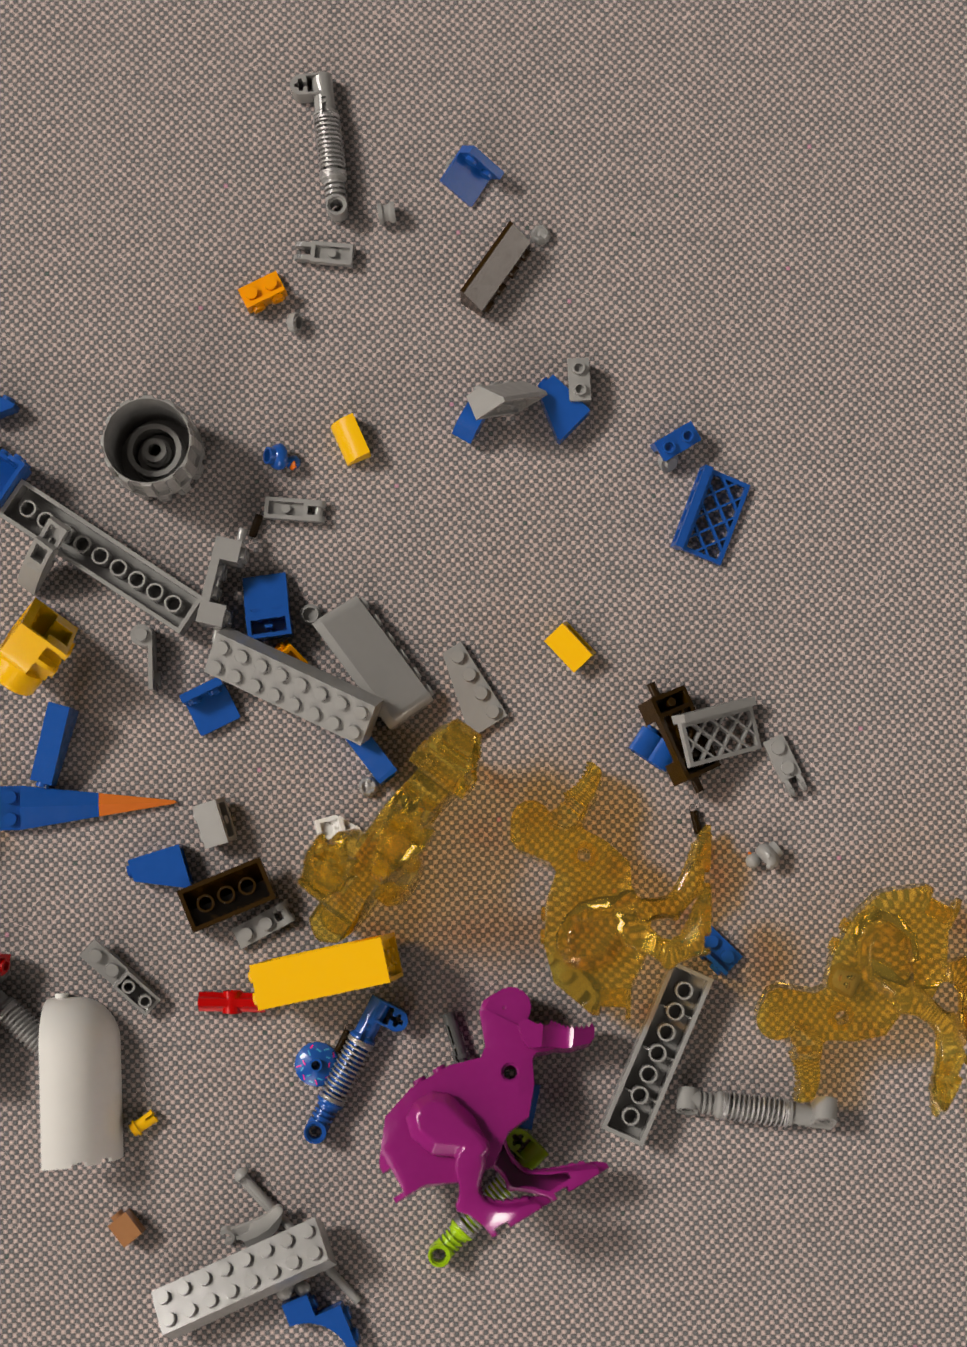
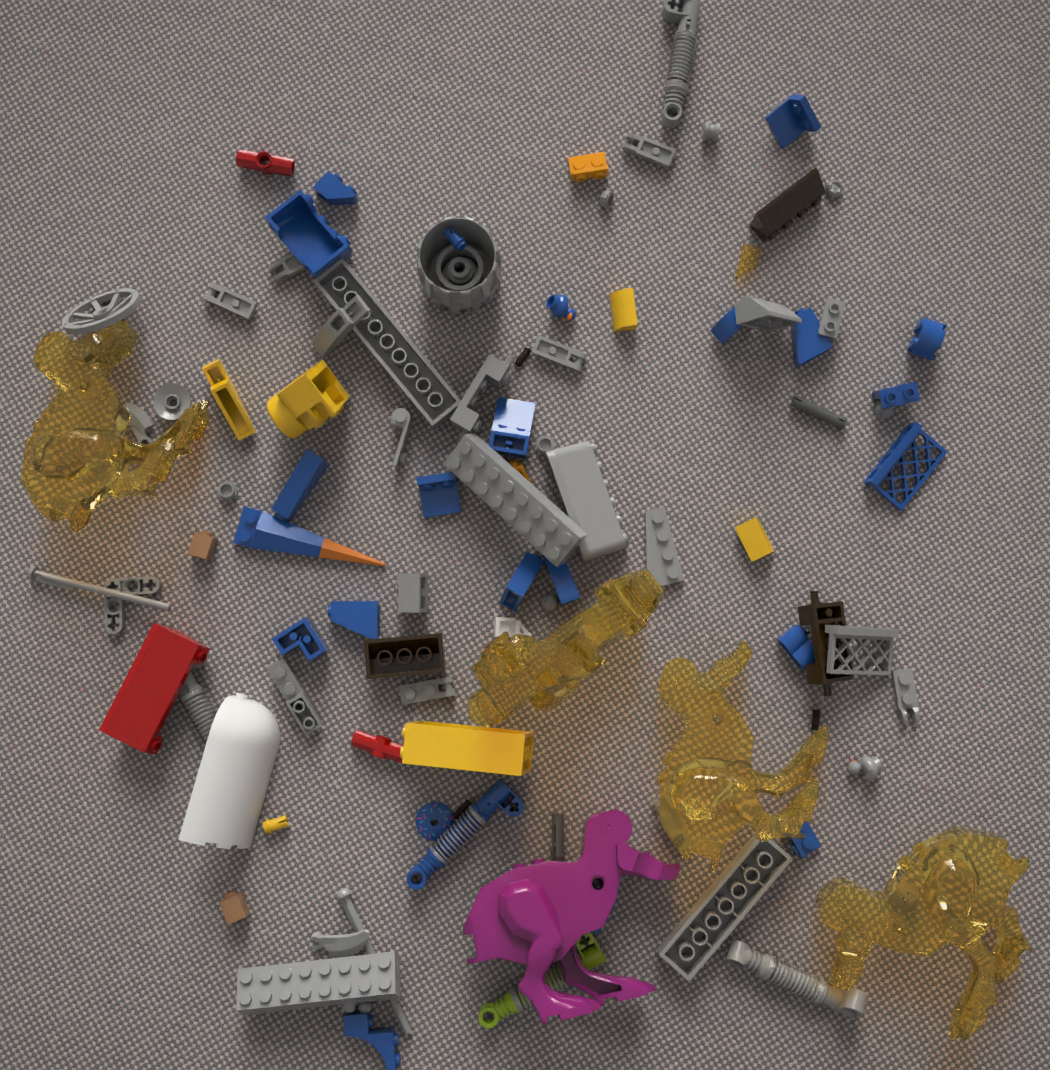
camera: 20 degrees right, 0 degrees up
(108, 907) = (301, 635): none -> blue brick
(139, 422) = (457, 241): none -> blue pin
(329, 773) = (521, 581): none -> blue slope
(470, 341) = (748, 259): none -> clear yellow tile
(597, 485) = (811, 408): none -> dark grey pin
(690, 370) = (928, 338): none -> blue brick

